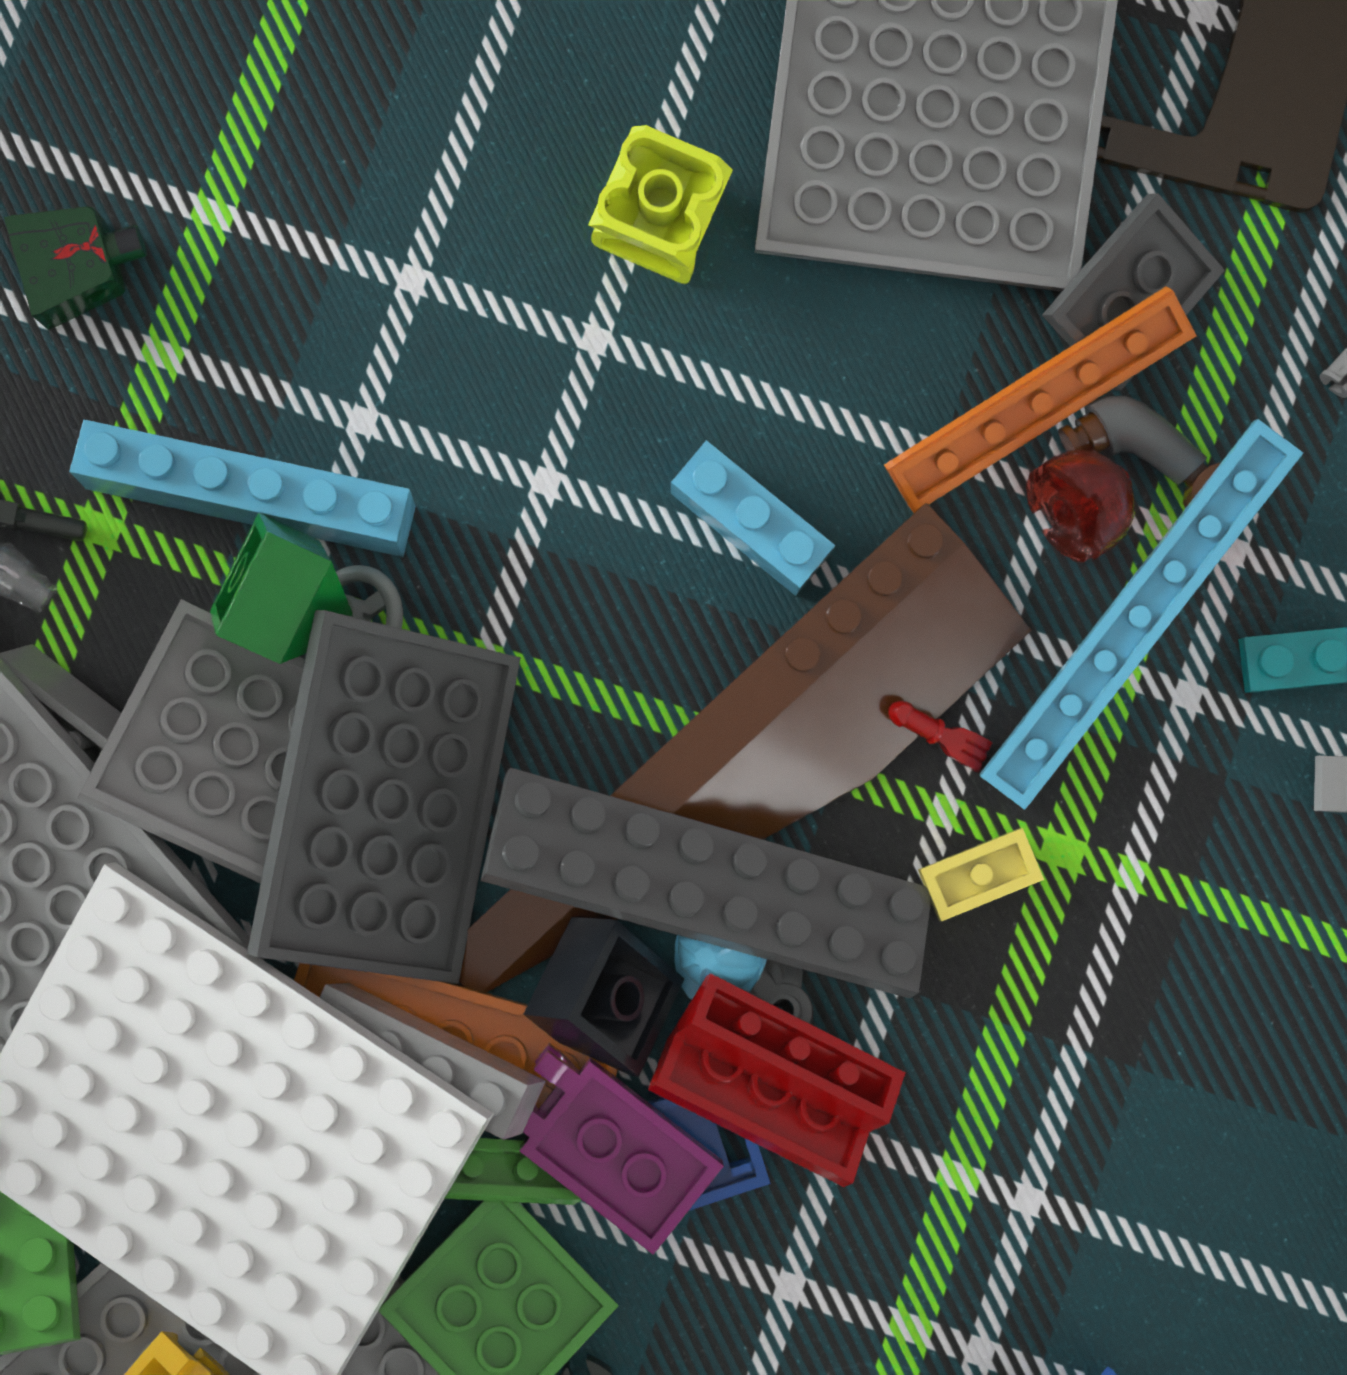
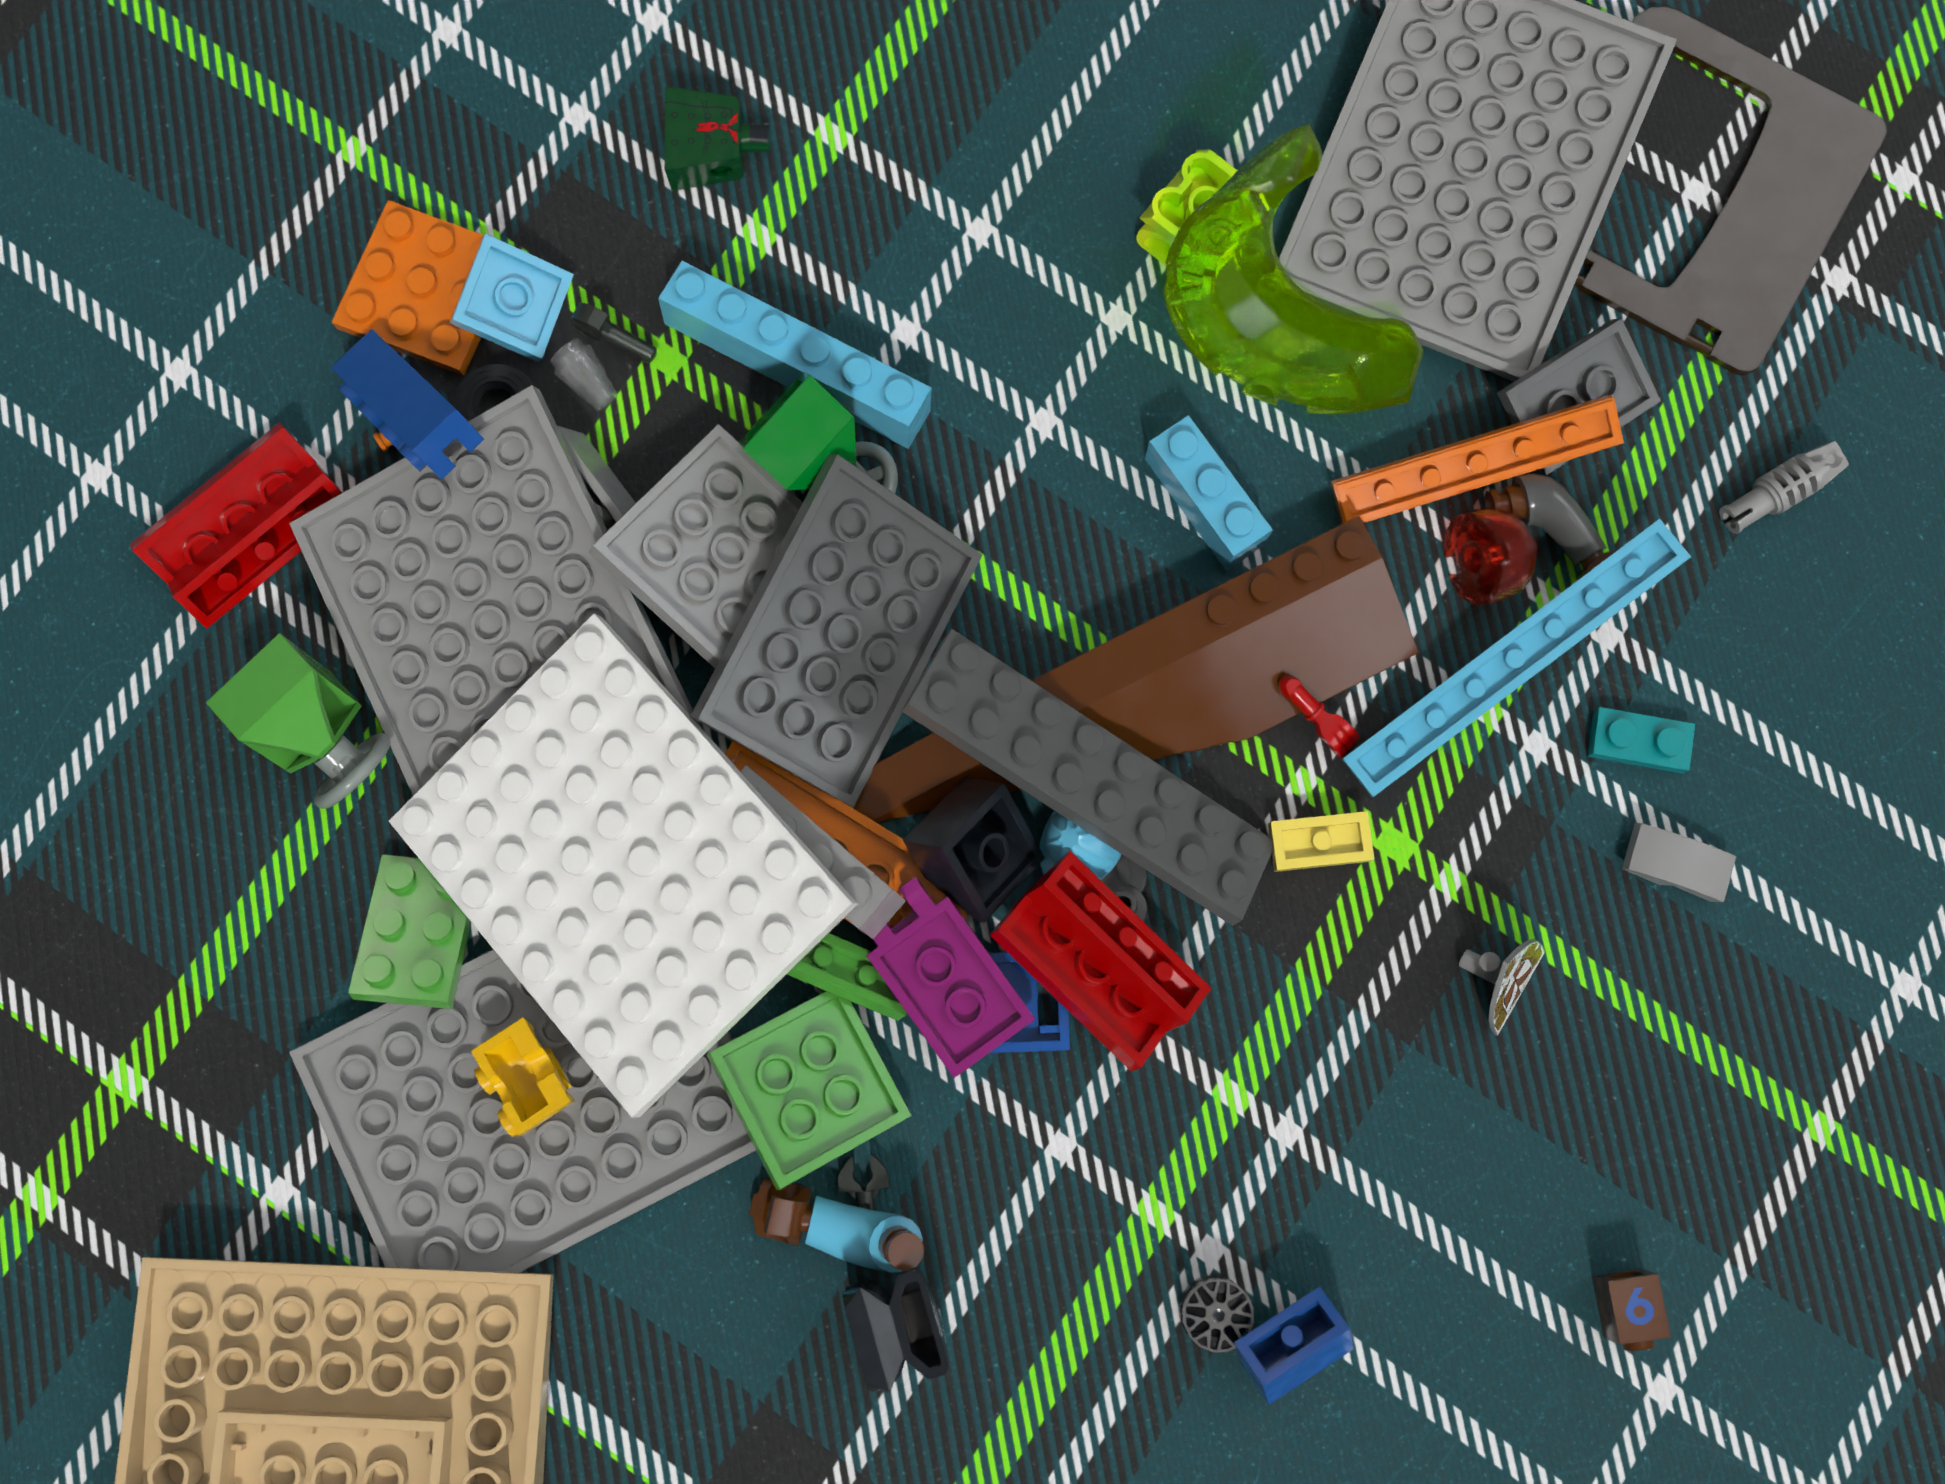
camera: 20 degrees right, 5 degrees down
(753, 310) = (1255, 322): none -> clear neon green windscreen
(1224, 970) = (1508, 977): none -> shield

